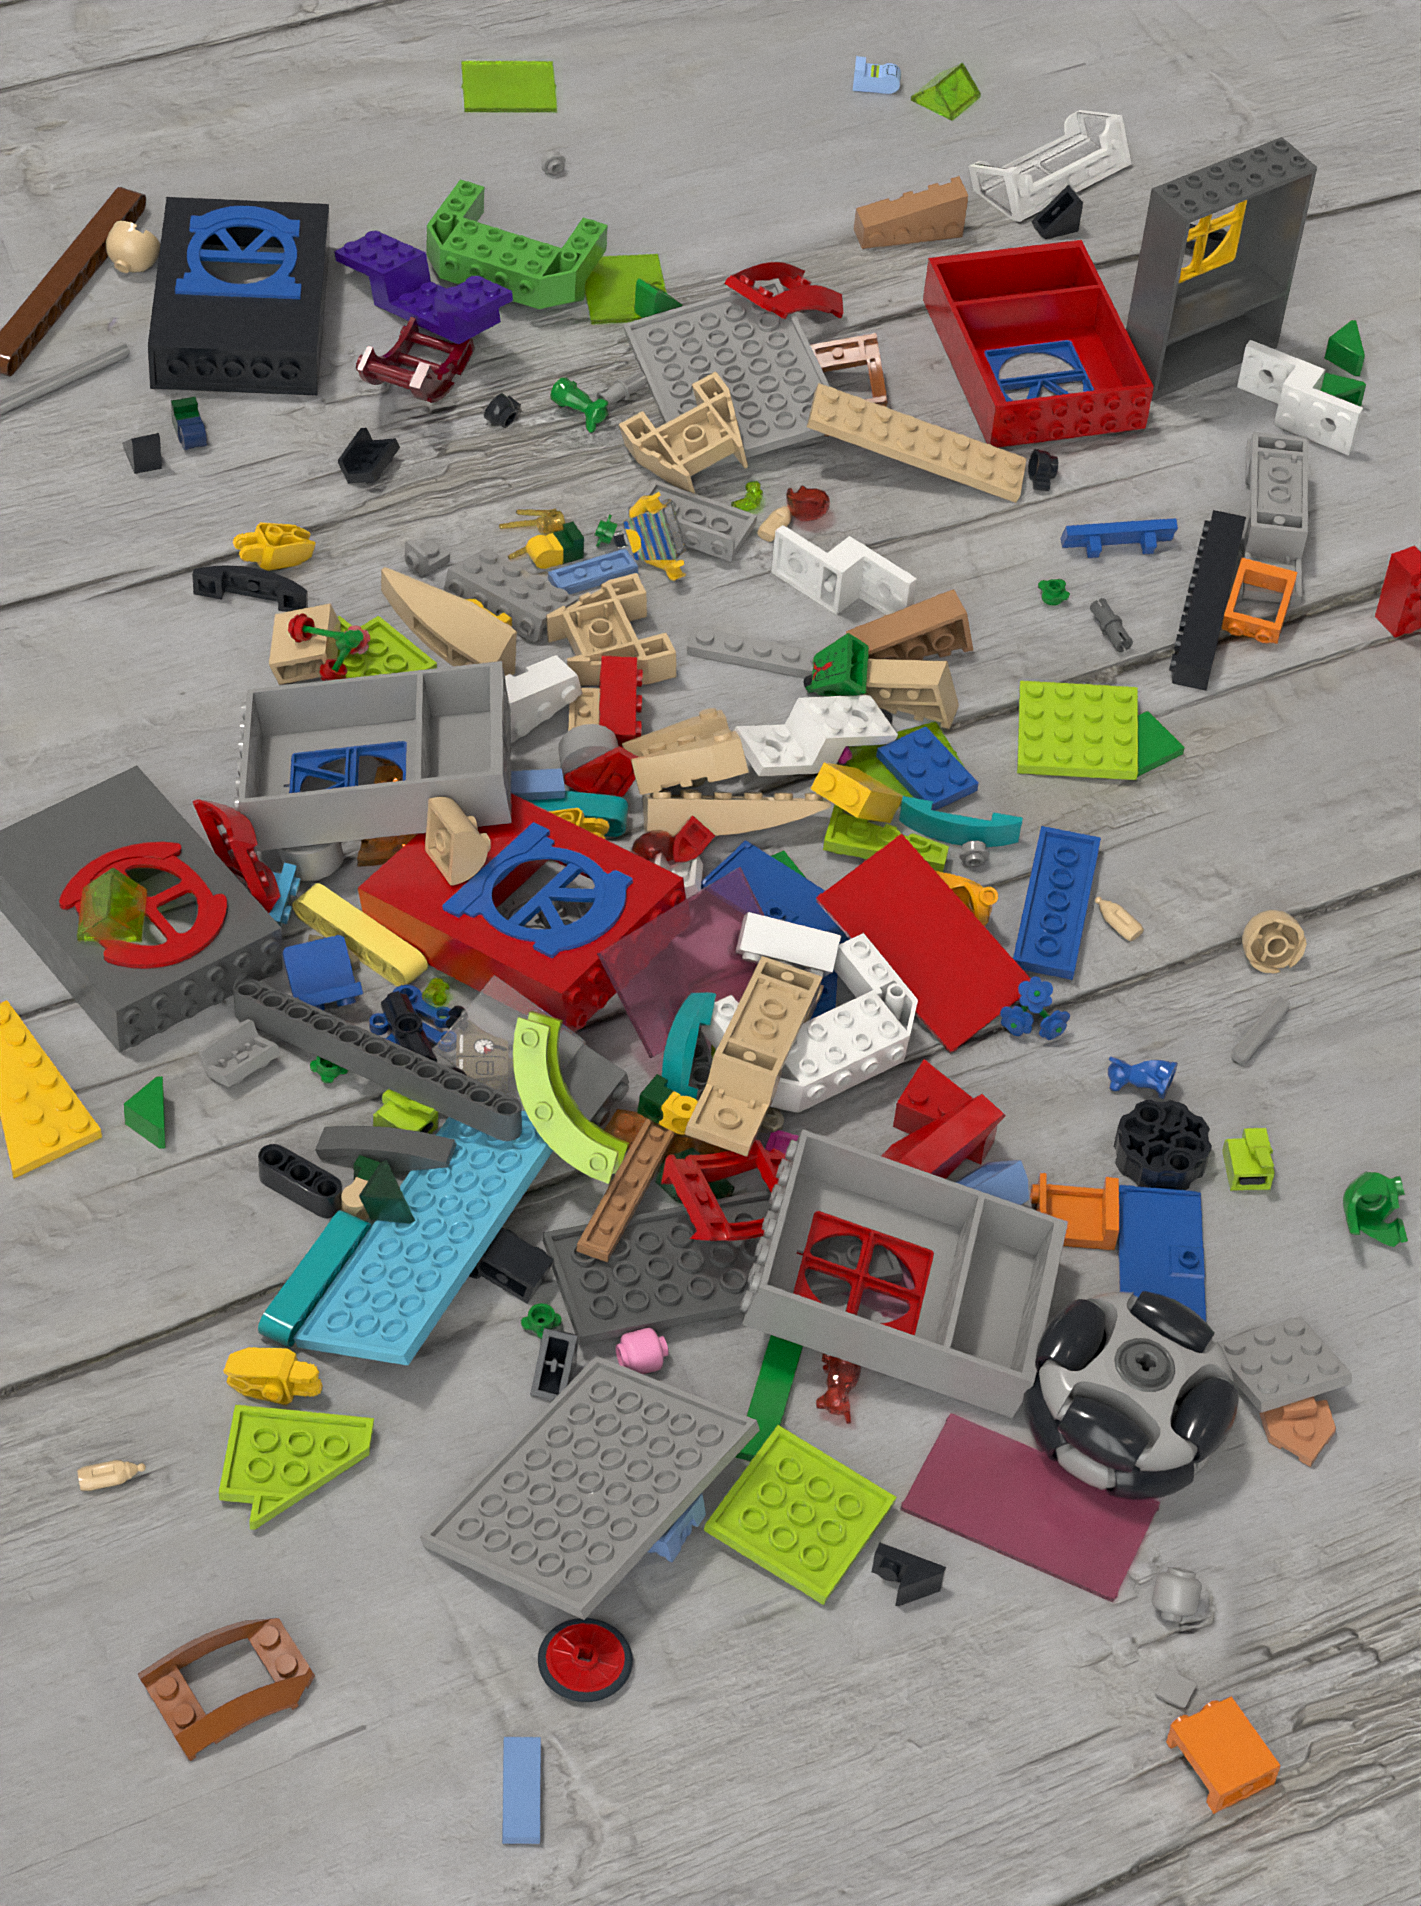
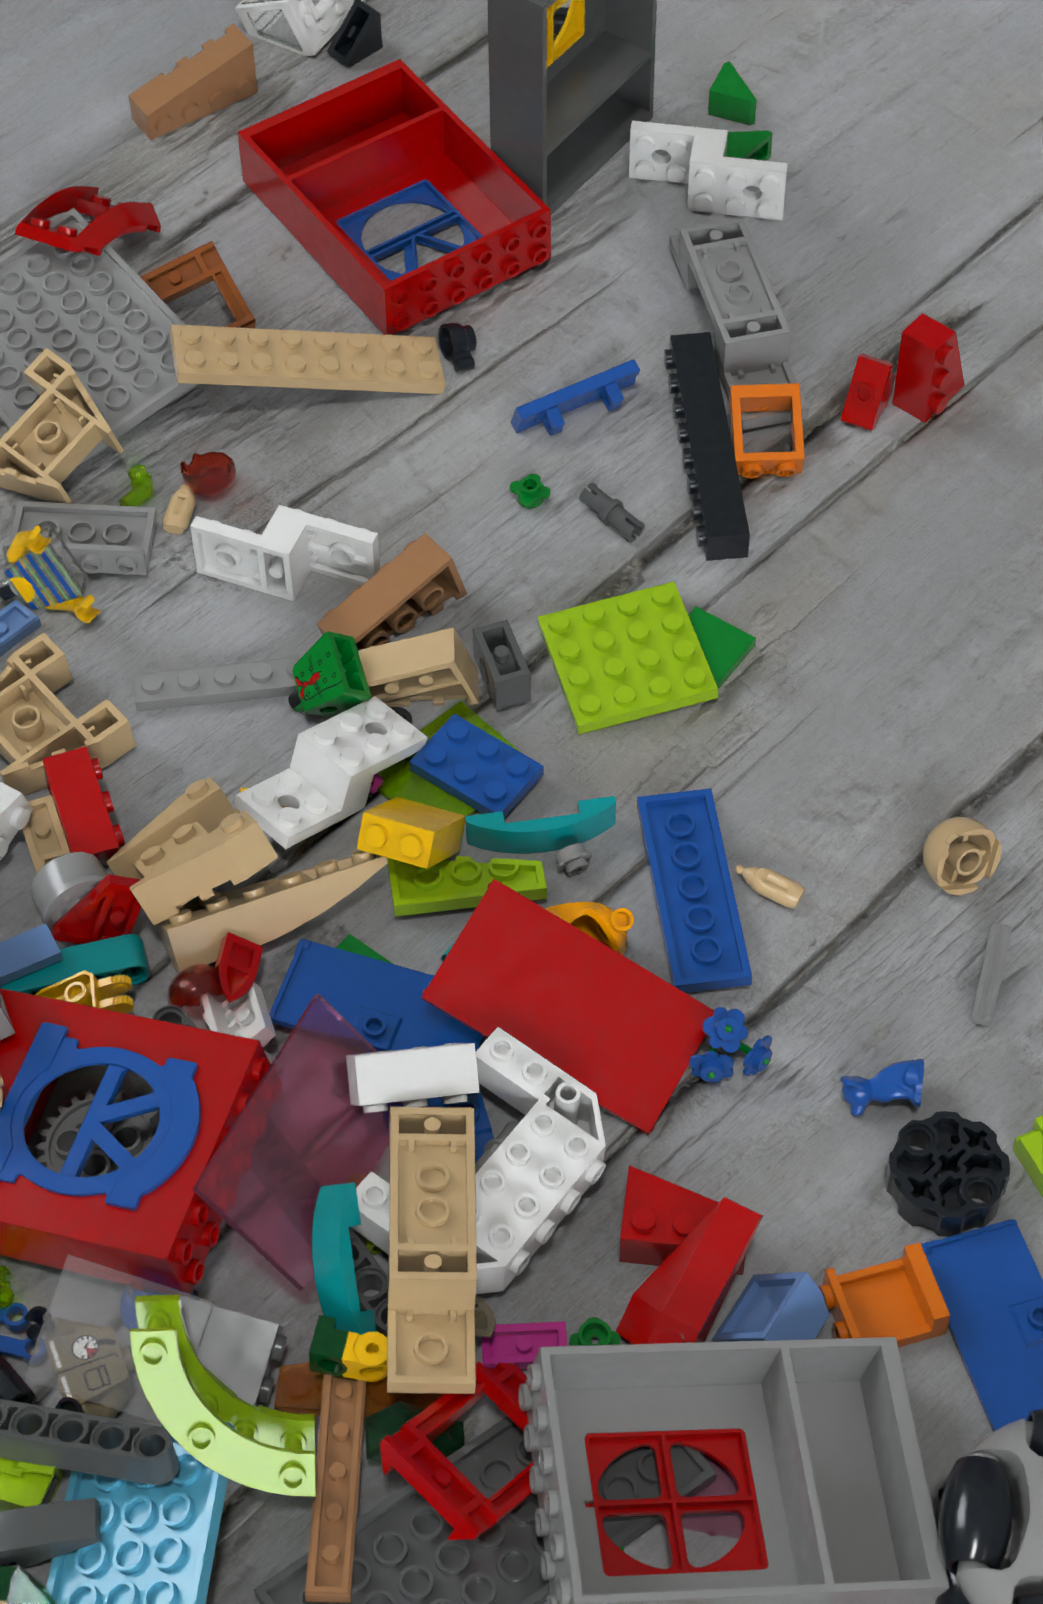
camera: 15 degrees left, 5 degrees up
(976, 703) = (502, 664): none -> dark grey brick
(1355, 598) = (868, 391): none -> red brick

